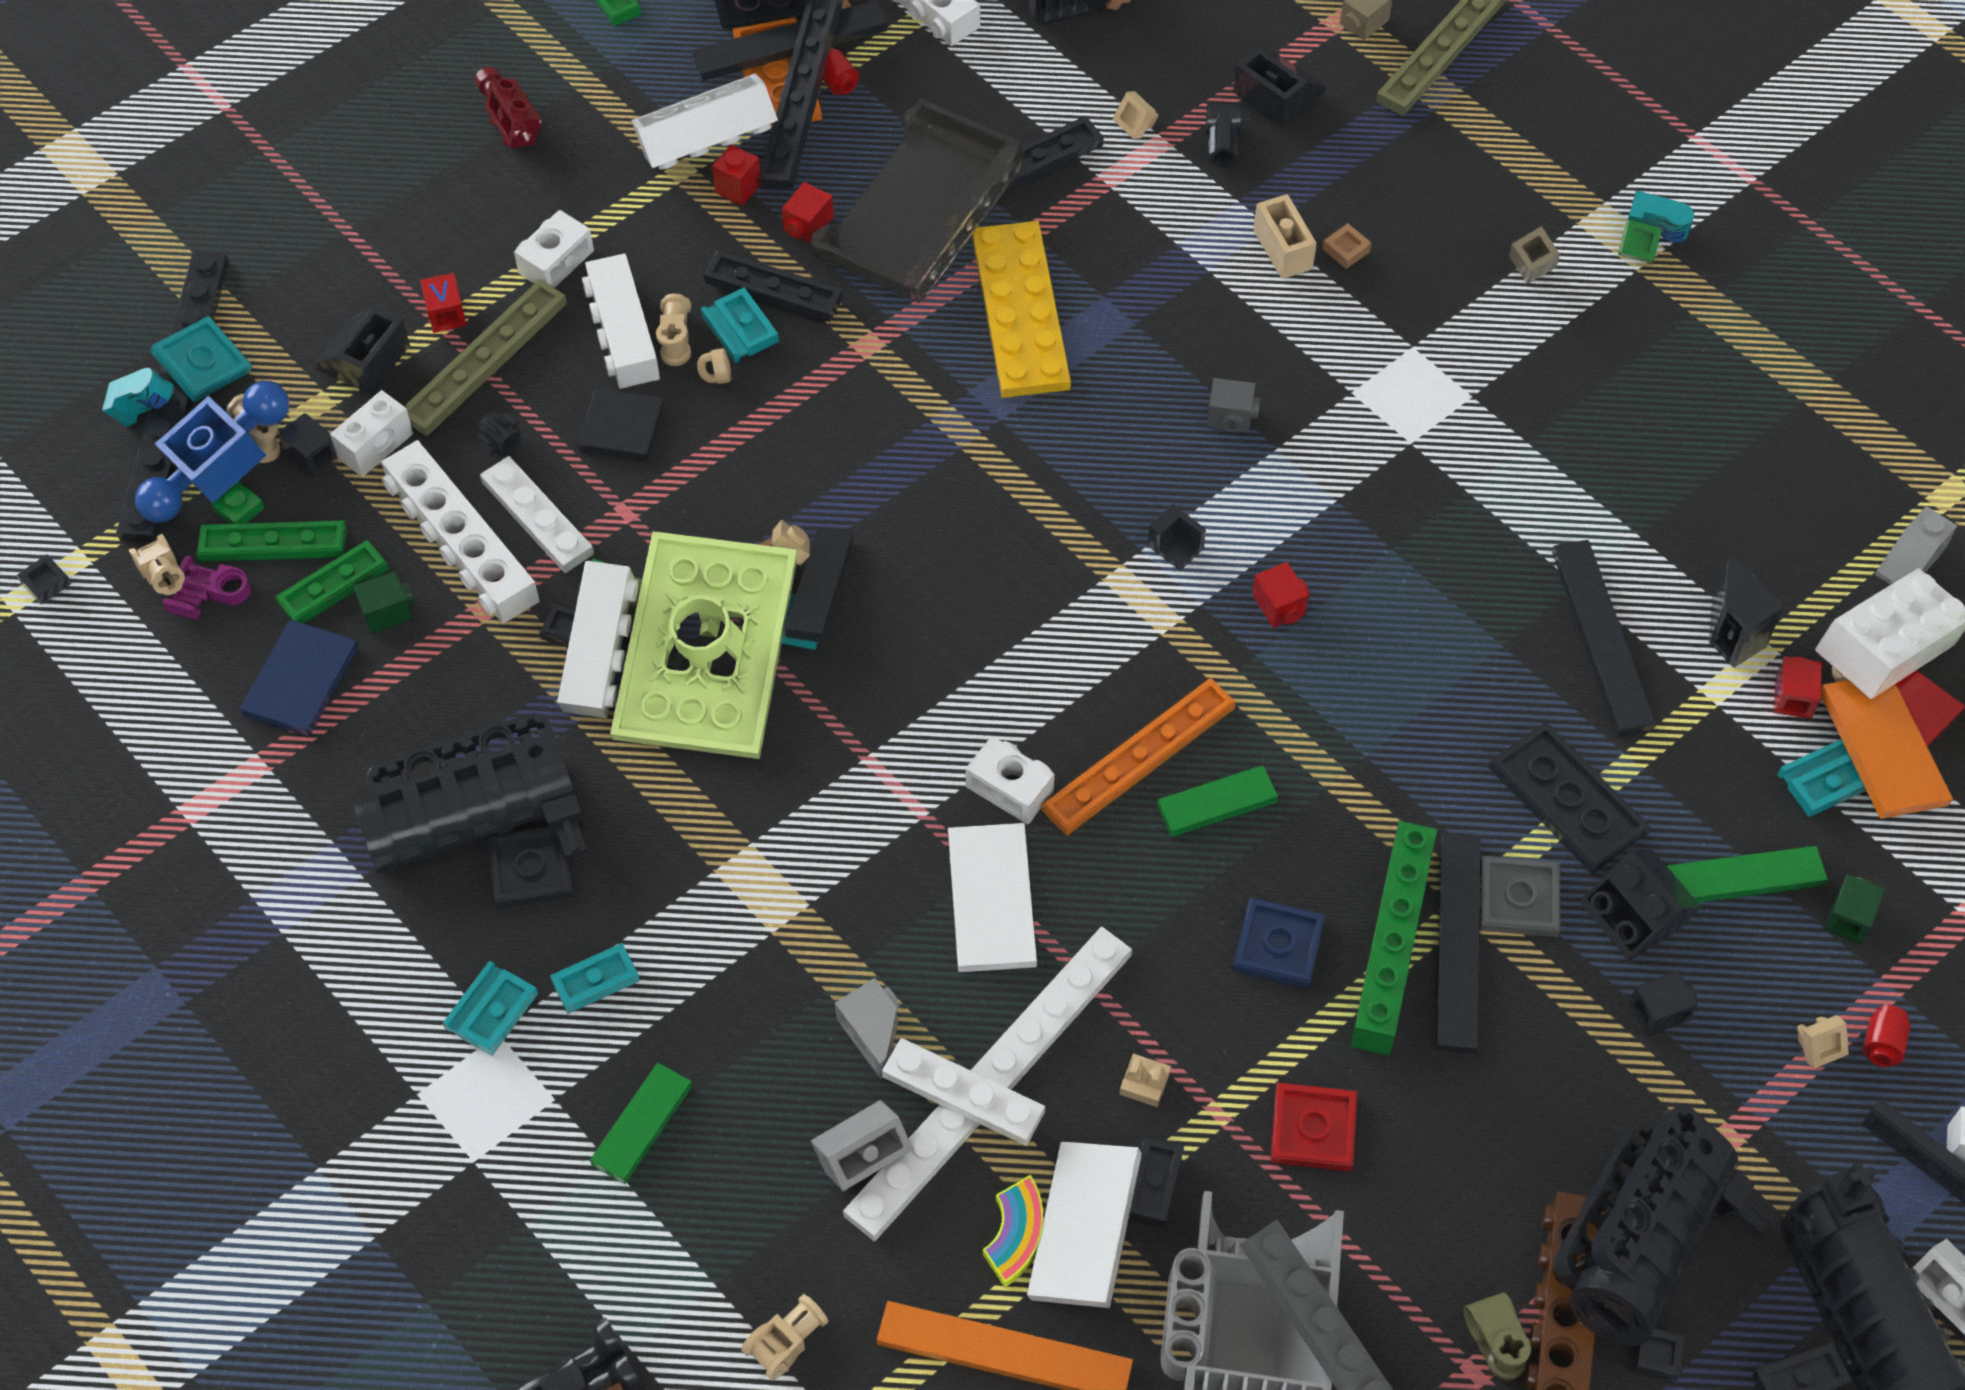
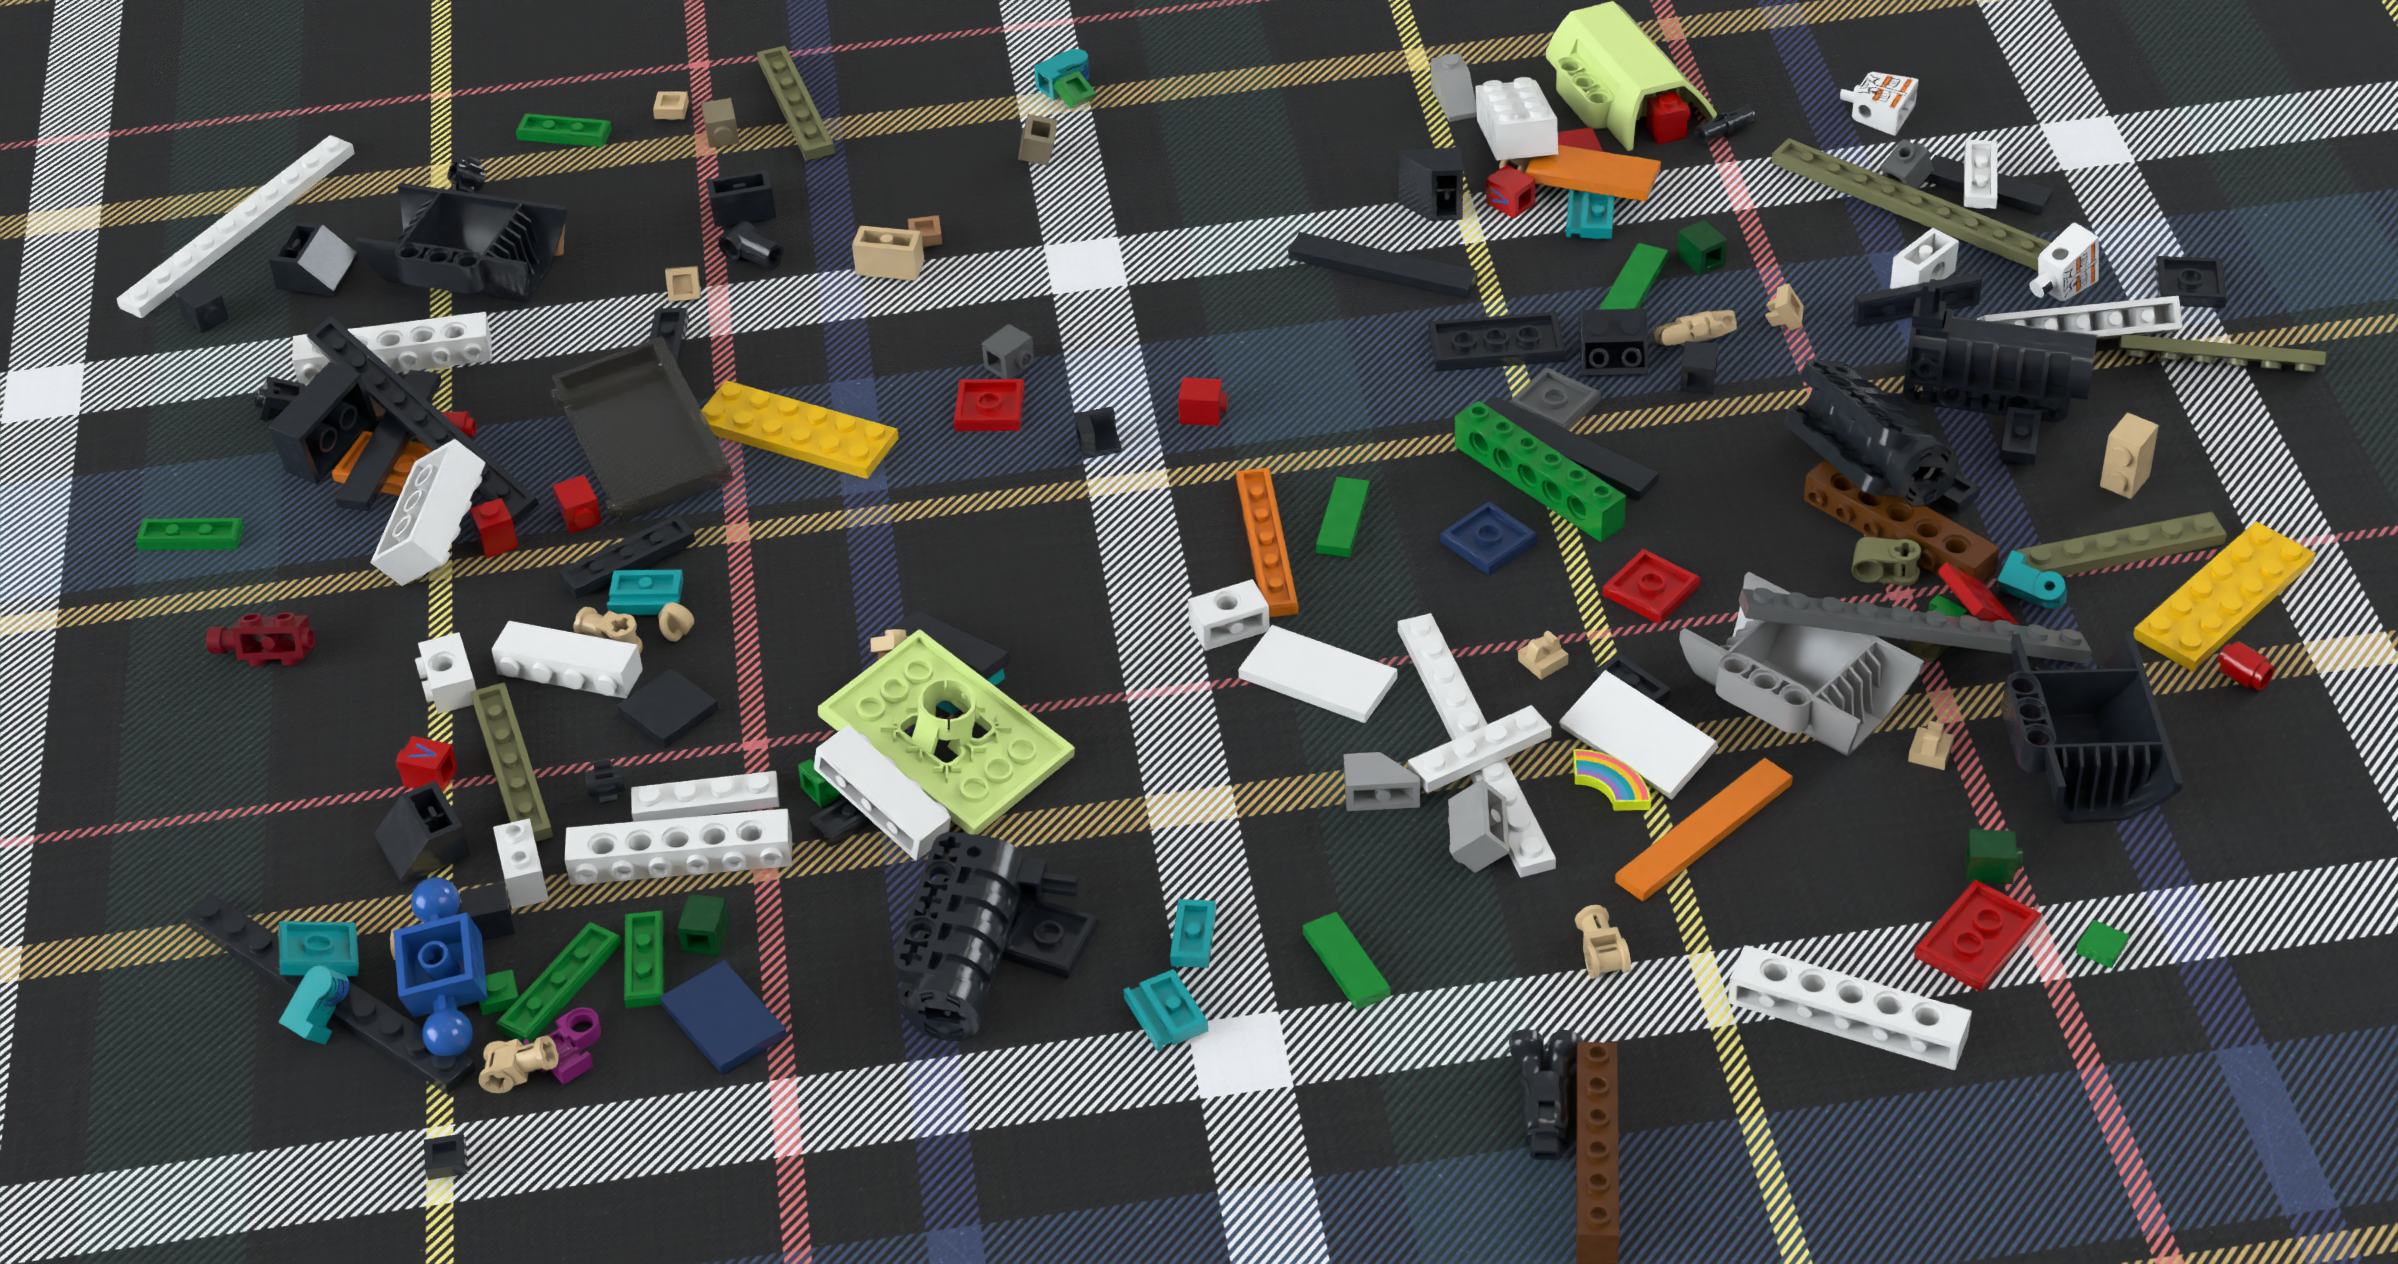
camera: 55 degrees left, 15 degrees down
(1159, 432) = (989, 405): none -> red tile
(1723, 968) = (1695, 328): none -> tan hinge
(1887, 1036) = (1807, 279): red brick -> none

